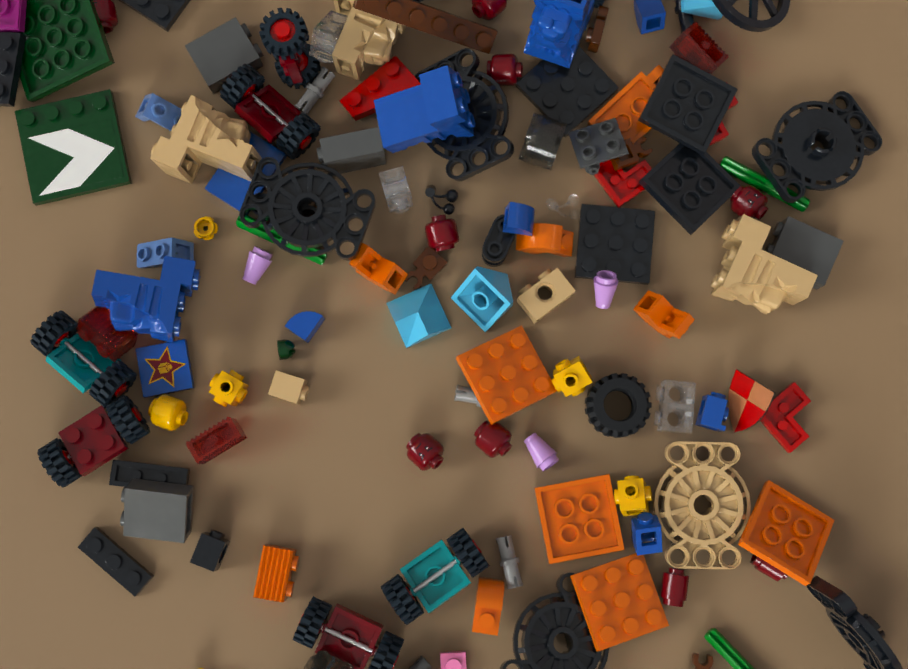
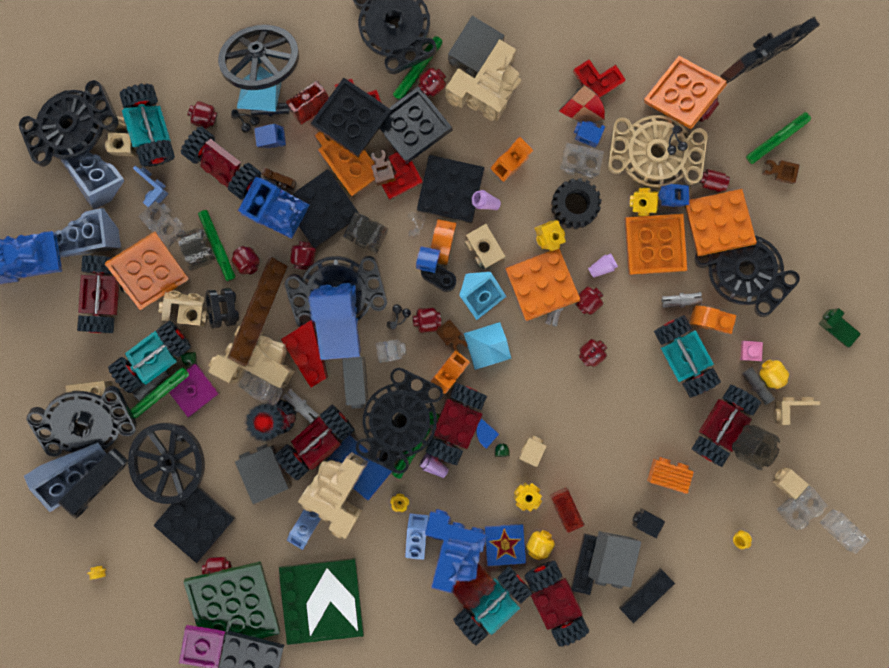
camera: 75 degrees left, 5 degrees up
(312, 284) = (456, 424): none -> plate
(597, 144) = (373, 190): dark grey hinge -> none
(714, 535) = (682, 146): none -> black piece

